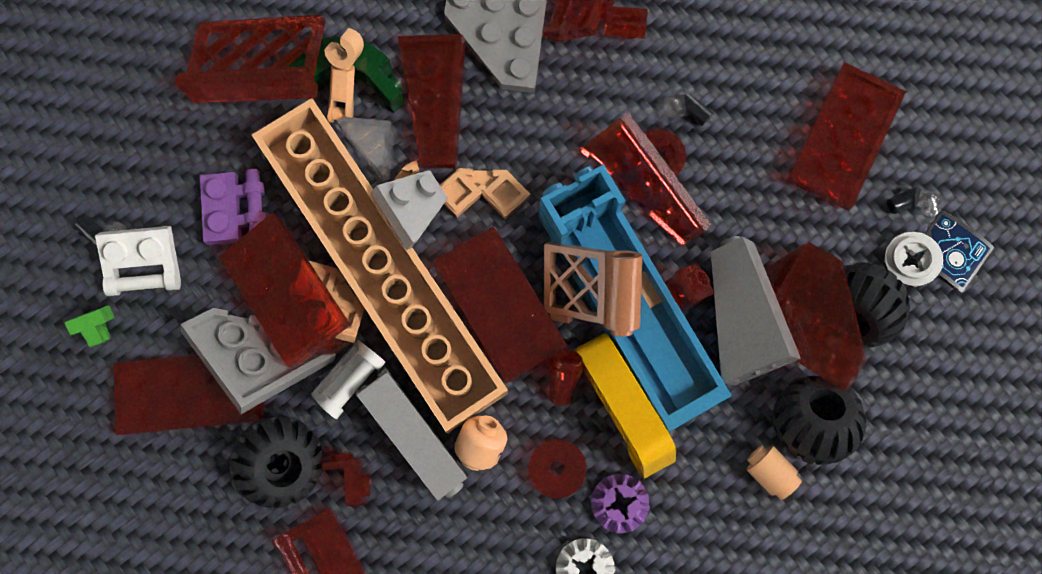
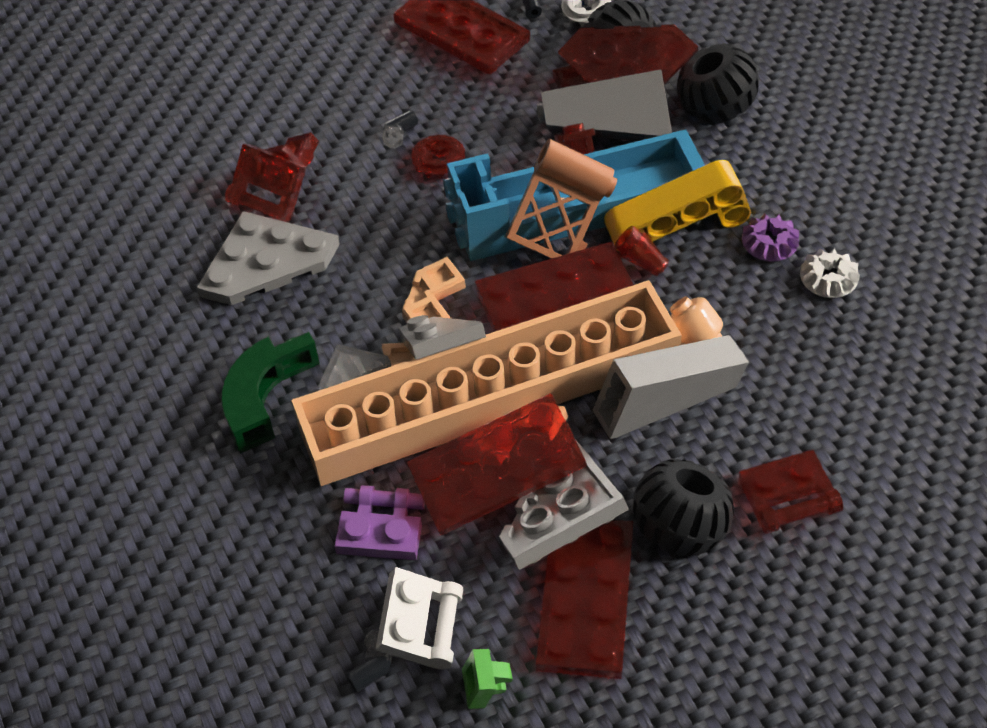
camera: 70 degrees left, 25 degrees down
(249, 82) = (248, 463): clear red fence -> none
(343, 73) = (269, 373): light nougat piece -> none
(346, 378) = (598, 433): white plate -> none
(356, 482) = (714, 442): clear red bracket -> none
(435, 94) = (331, 317): clear red wing -> none
(569, 457) = (729, 267): clear red piece -> none
(647, 177) = (426, 161): clear red wing -> none
(773, 471) = (759, 122): light nougat brick -> none

